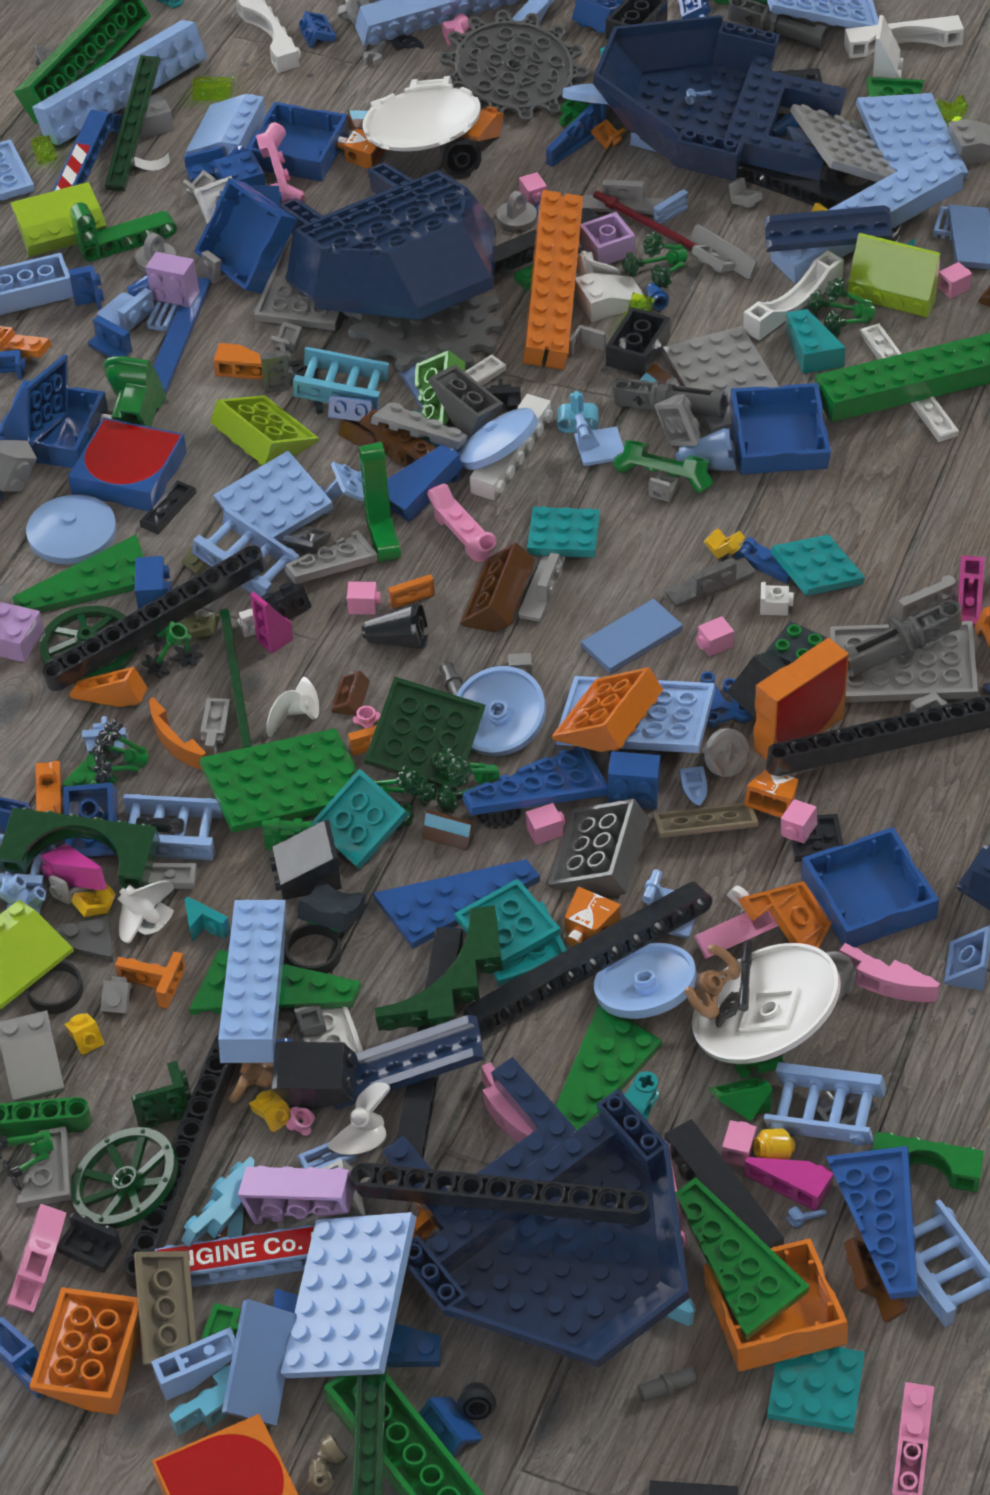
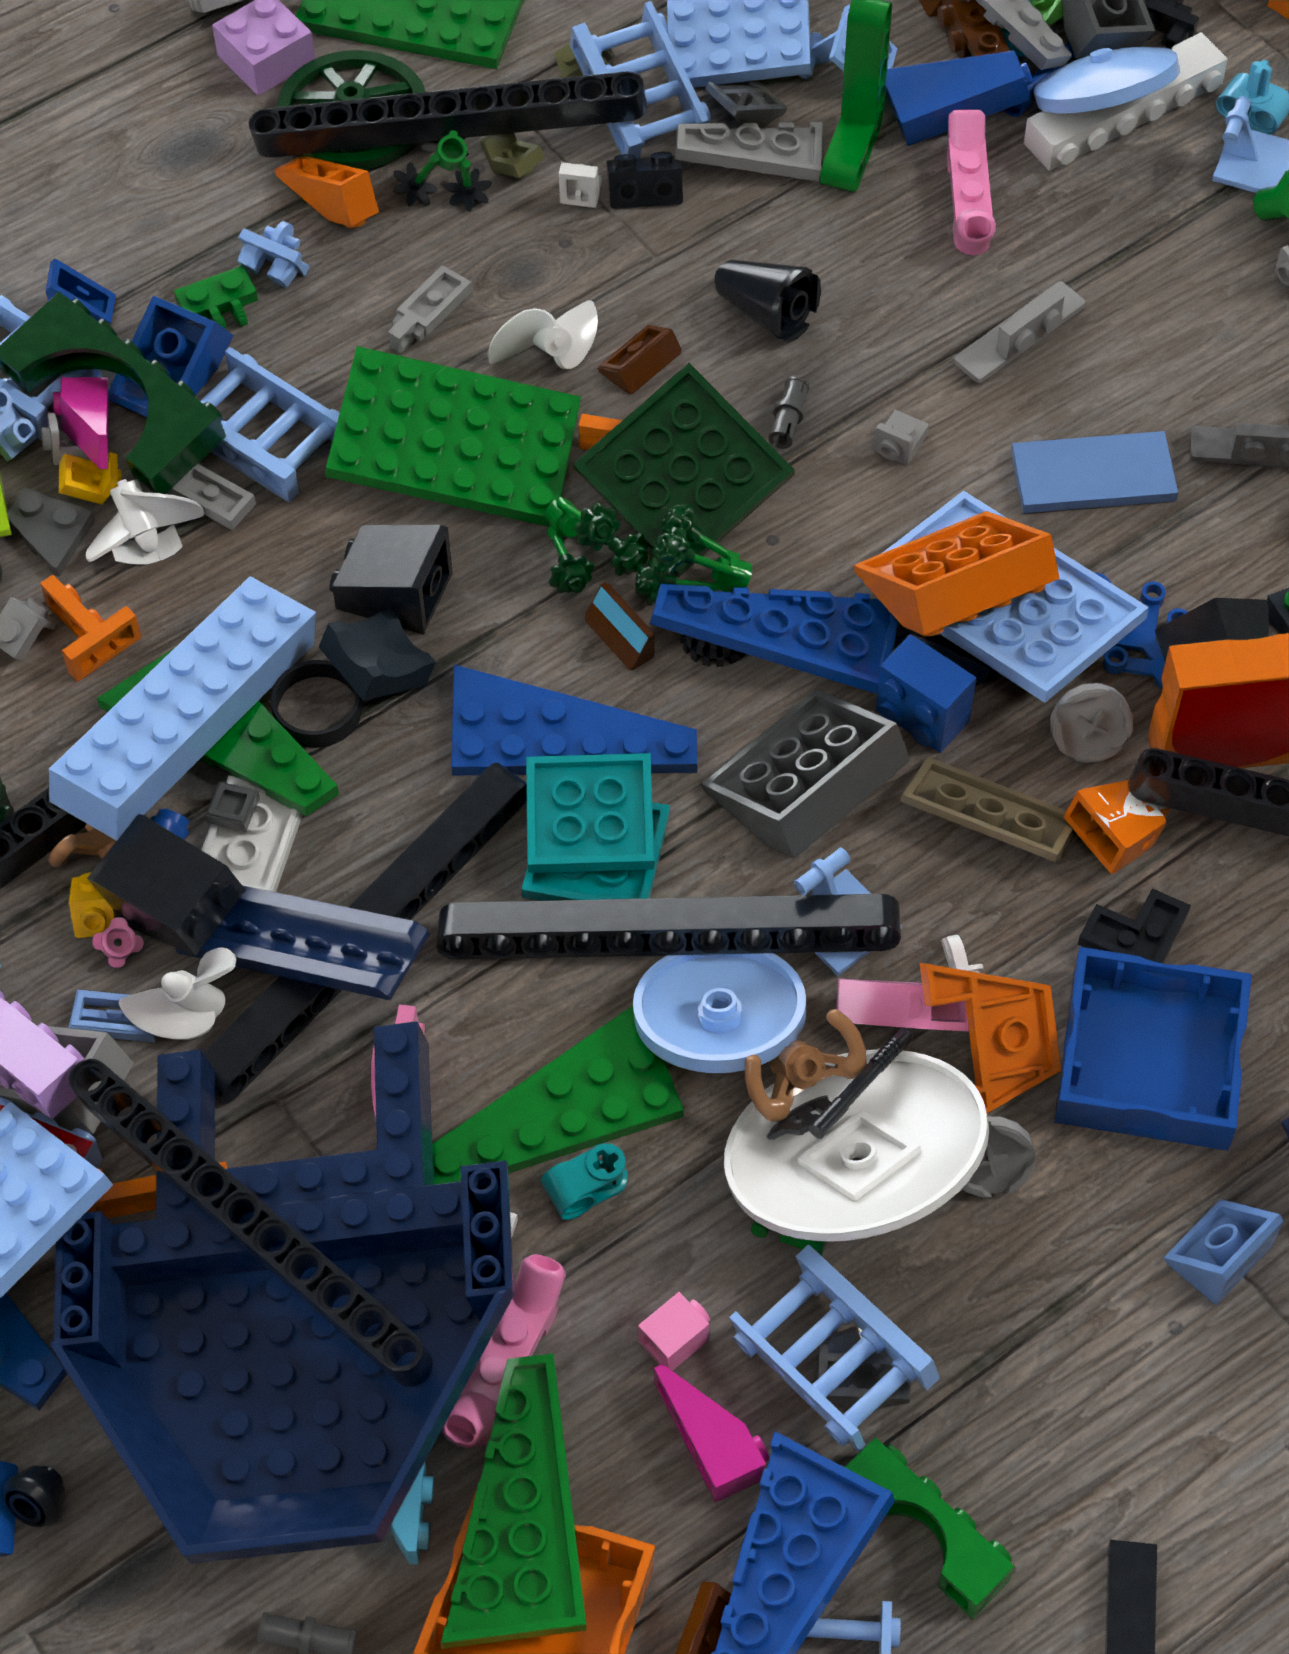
camera: 30 degrees right, 10 degrees up
(48, 787) = (165, 268): orange hinge -> none
(135, 757) = (287, 298): plant -> none
(151, 579) = (481, 57): blue brick -> none
(163, 824) = (243, 415): black axle -> none
(186, 752) = (356, 269): orange slope -> none
(203, 917) = (199, 577): teal slope -> none
(235, 678) = (497, 260): dark green tile -> none
(271, 628) = (597, 200): dark pink slope -> none
(278, 831) = (386, 509): green plate -> none
(361, 818) = (507, 547): teal plate -> none
(363, 598) = (755, 225): bright pink brick -> none
(366, 716) = (630, 395): bright pink plate -> none
(411, 591) = (829, 248): orange tile -> none
(458, 985) = (454, 866): dark green arch -> none
(498, 589) = (952, 307): reddish brown slope -> none
(512, 710) = (832, 498): light blue dish -> none
(544, 823) = (759, 690): bright pink brick -> none
(563, 531) = (1108, 266): teal plate -> none
(589, 915) = (716, 864): orange torso -> none
(694, 784) = (1015, 745): medium blue plate -> none
(699, 1159) = (595, 1389): black brick -> none
(715, 636) = (1210, 535): bright pink brick -> none
(745, 1096) = (730, 1264): green slope -> none
(774, 1144) = (720, 1367): yellow head -> none
(798, 821) = (1117, 887): bright pink brick -> none
(798, 1218) = (676, 1499): medium blue hand -> none
(893, 981) = (1085, 1215): bright pink slope -> none

